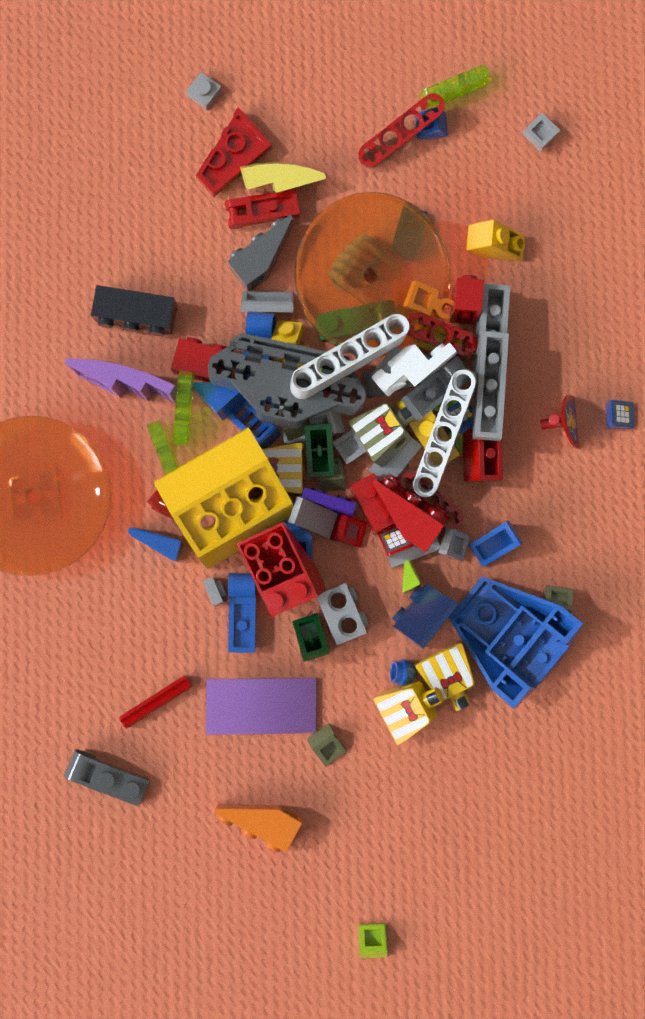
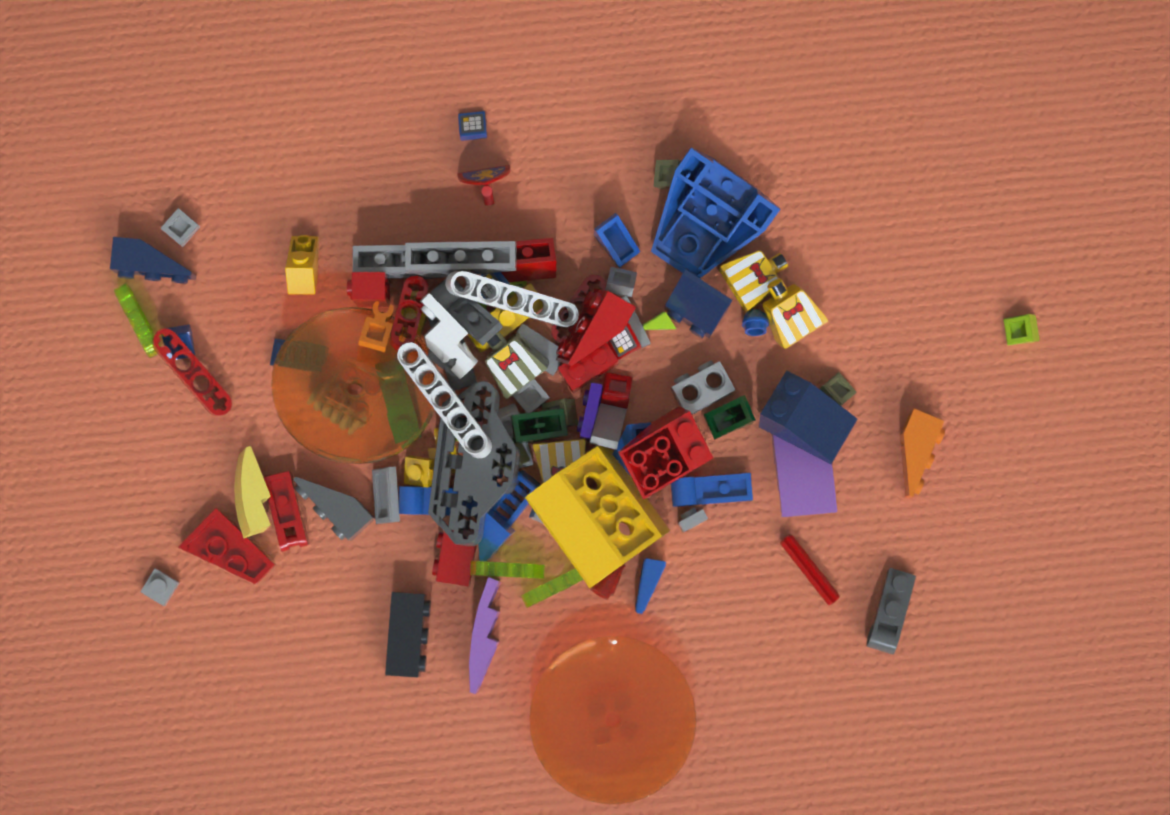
camera: 95 degrees left, 0 degrees up
(302, 714) = (807, 418): none -> dark blue slope
(515, 90) = (136, 257): none -> dark blue slope

